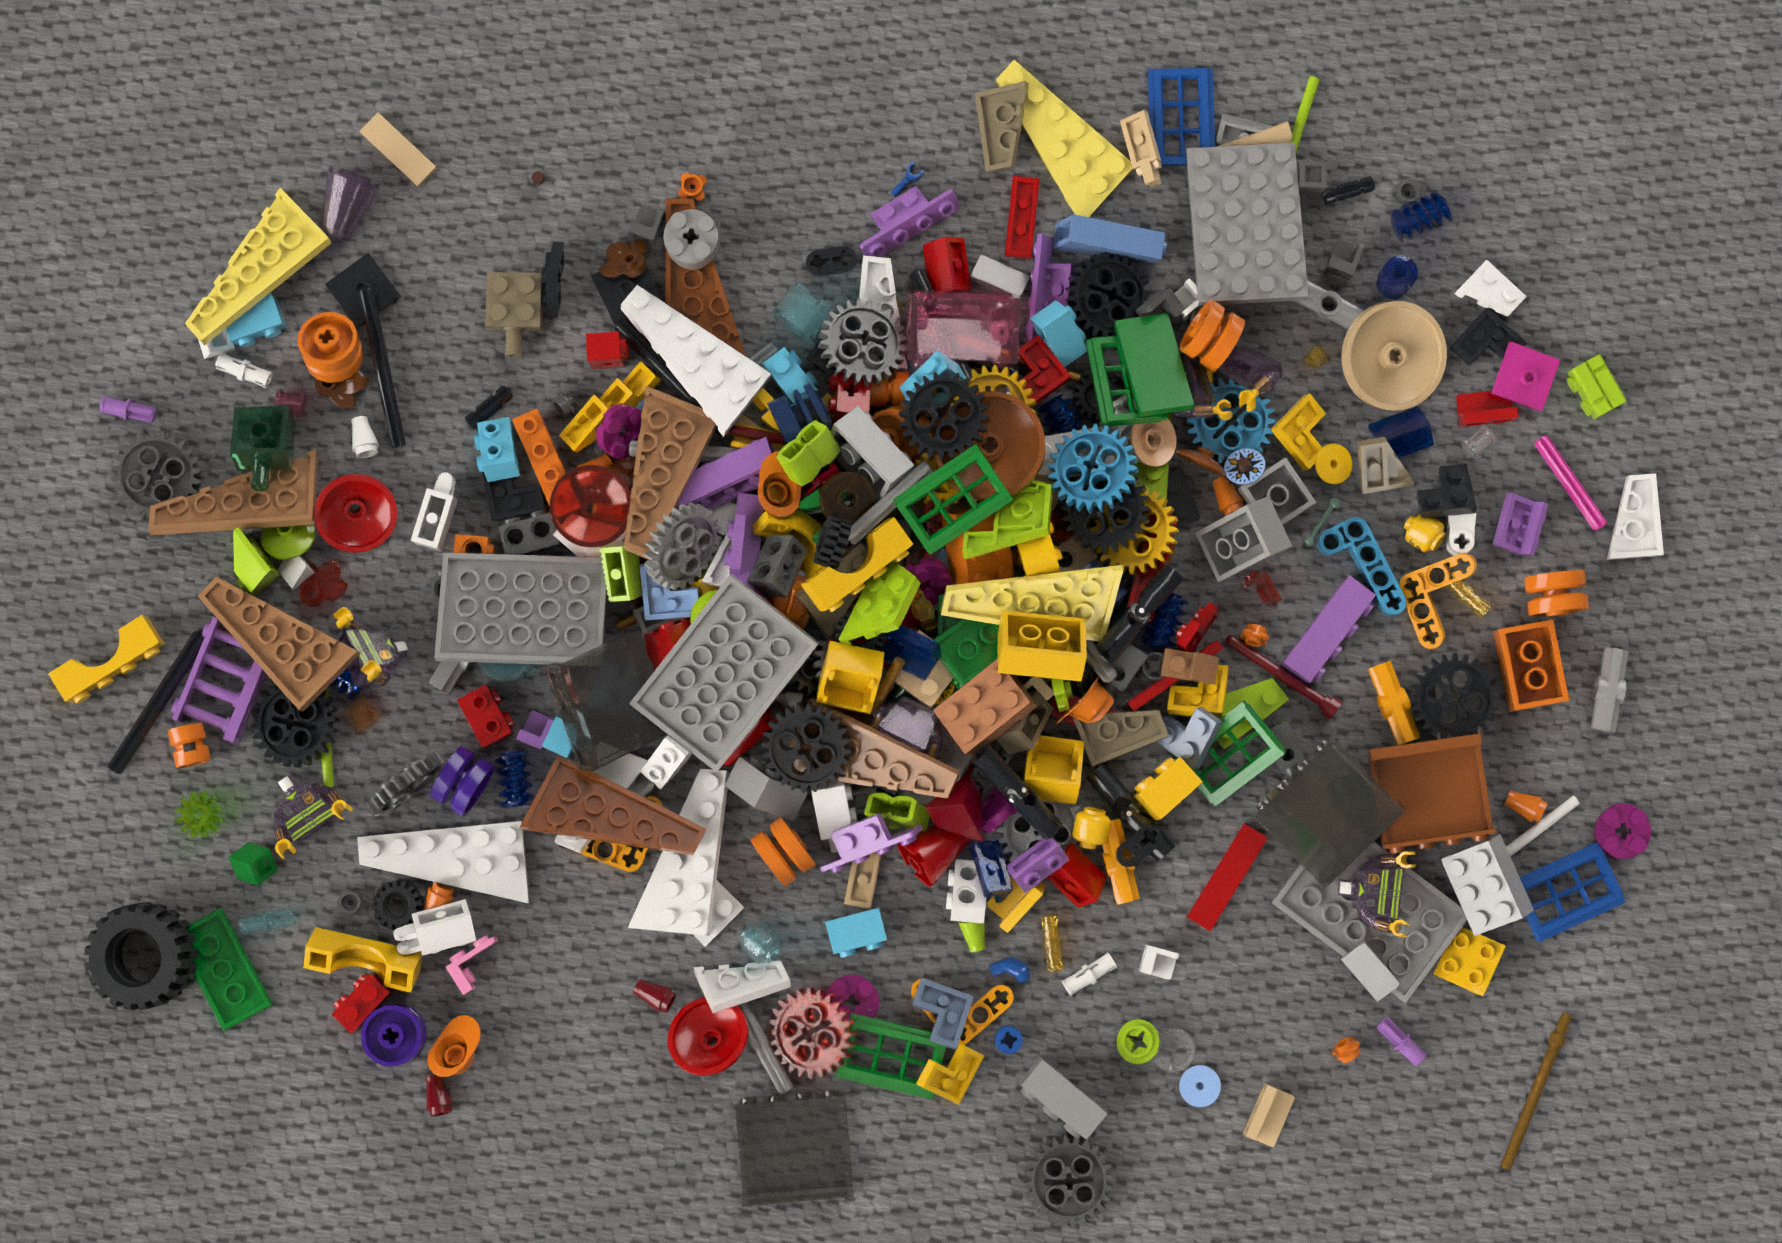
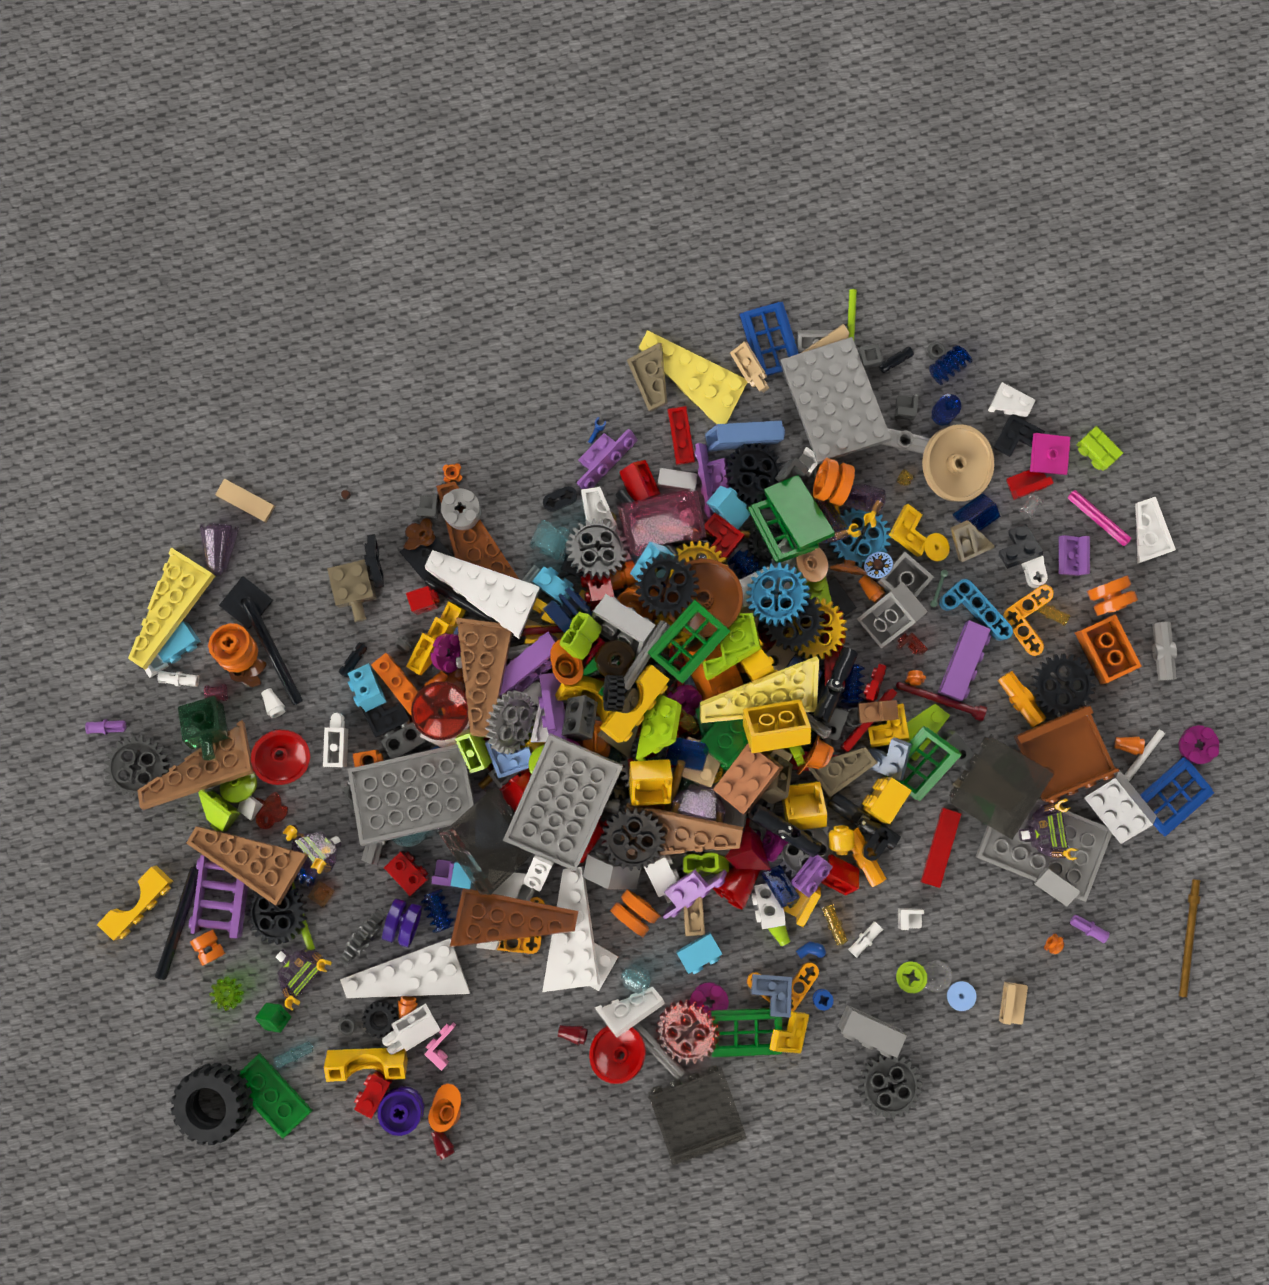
camera: 15 degrees left, 0 degrees up
(1424, 533) = (1011, 578): yellow head -> none
(1470, 961) = (1121, 861): yellow hinge -> none

